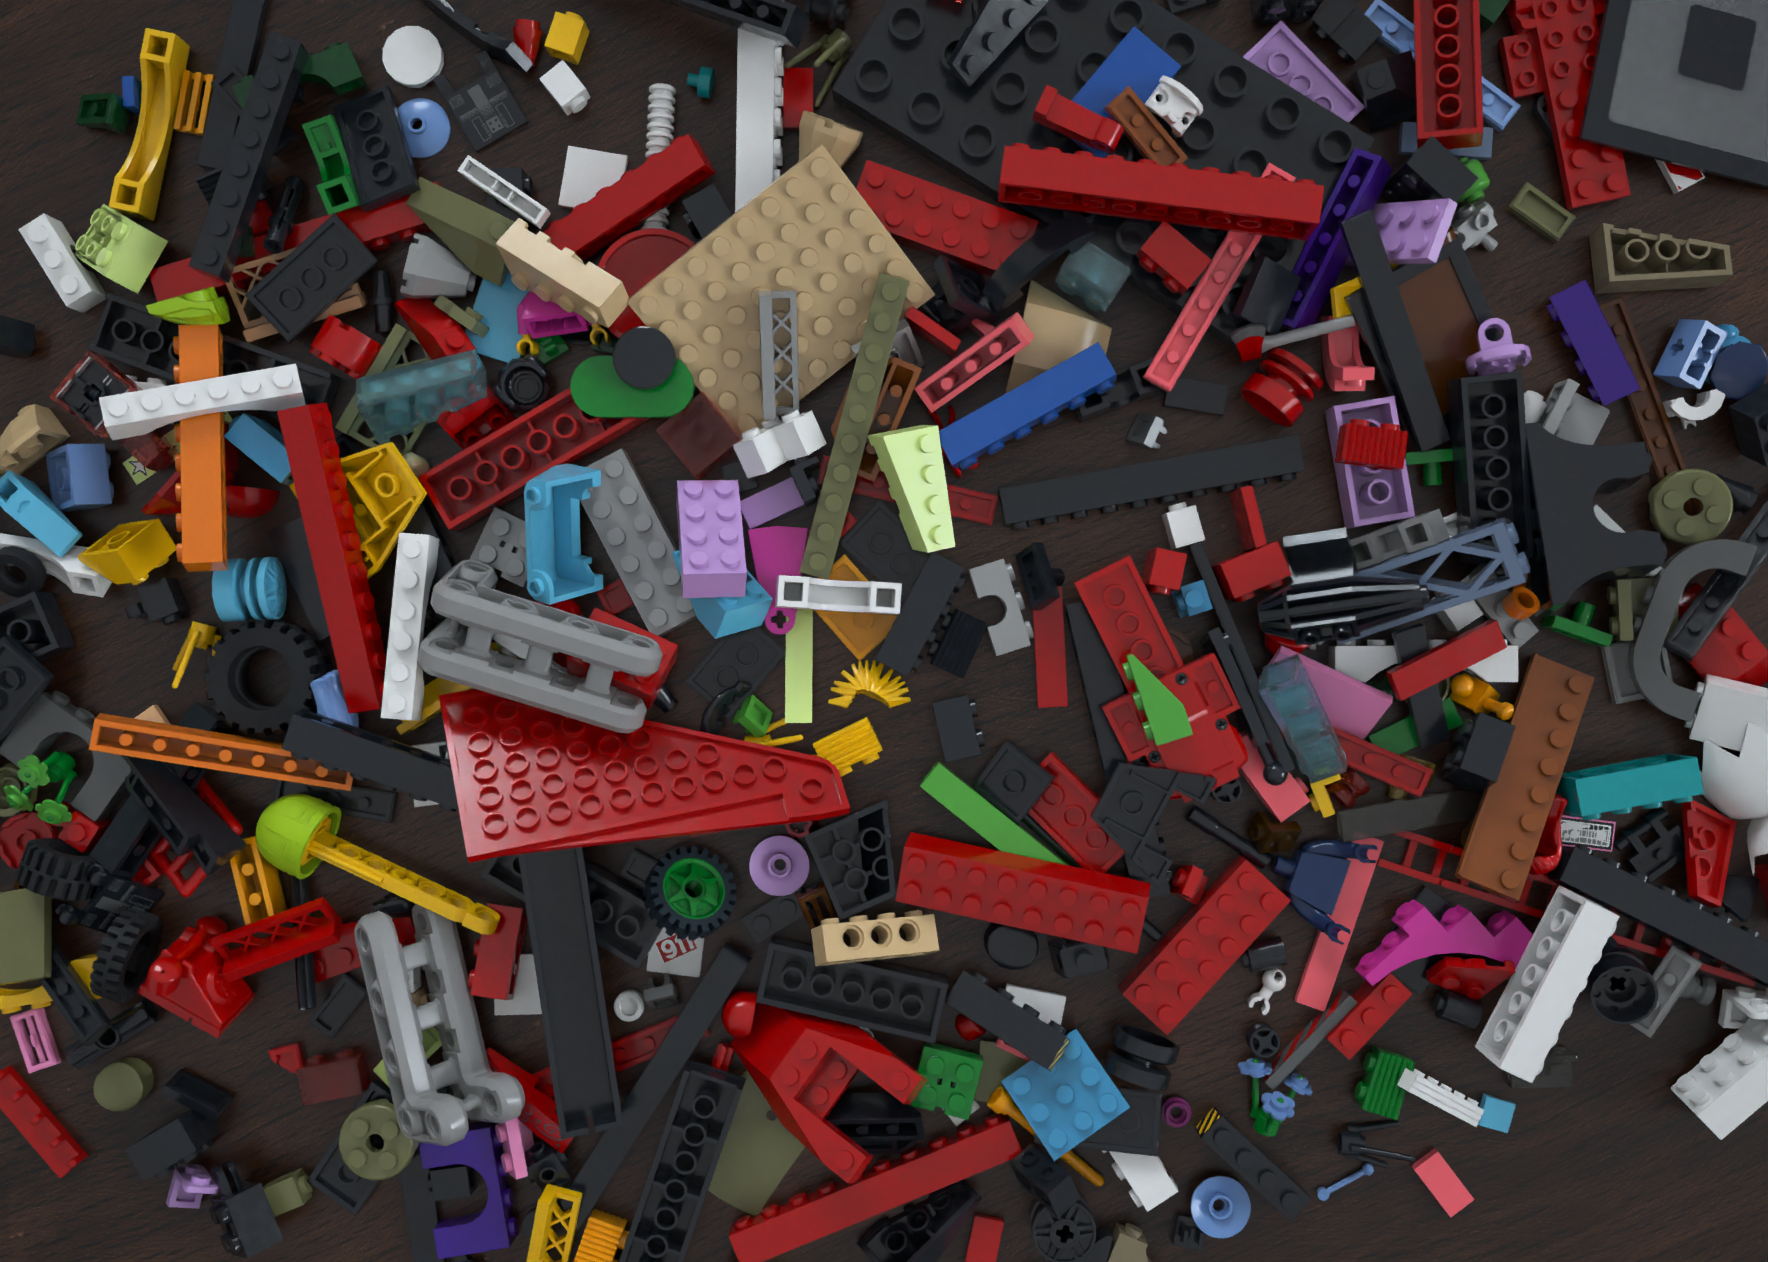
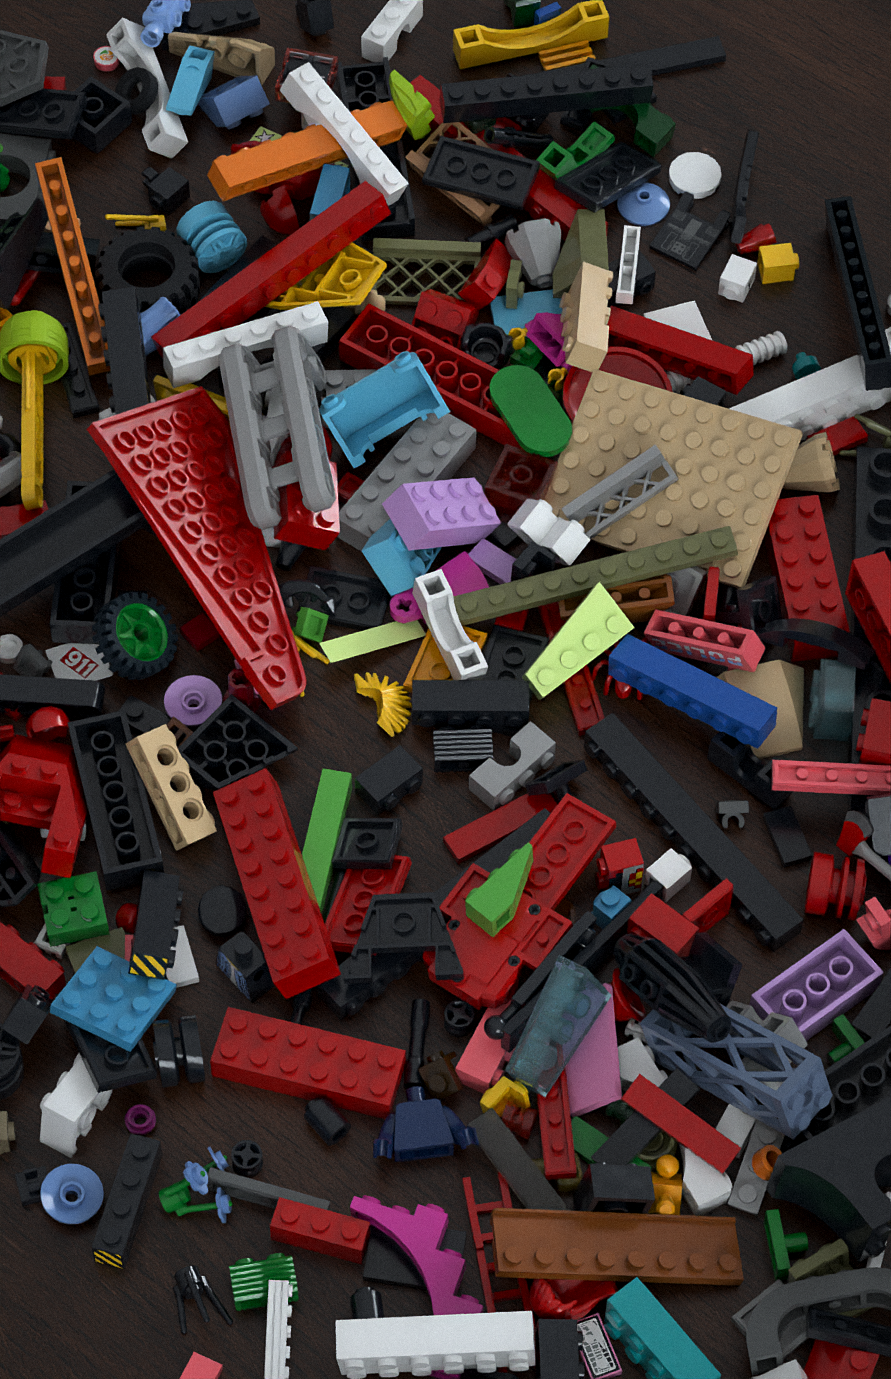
camera: 60 degrees right, 30 degrees down
(119, 248) = (426, 53): yellowish green slope -> none
(130, 551) = (191, 148): yellow slope -> none
(150, 450) = (284, 123): clear red brick -> none
(345, 347) = (442, 217): red brick -> none
(419, 393) = (433, 270): clear light blue wedge -> none
(644, 358) = (557, 402): black tile -> none
(849, 746) = (325, 707): yellow brick -> none
(1002, 1102) = (73, 960): light orange piece -> none
(1189, 883) = (357, 1020): red bracket -> none
(1271, 984) = (303, 1142): white arm -> none
(1324, 1193) = (128, 1288): medium blue hinge -> none
(1326, 954) = (394, 1174): coral tile -> none
(1371, 446) = (827, 965): red brick -> none
(1469, 976) = (402, 1292): red wing -> none

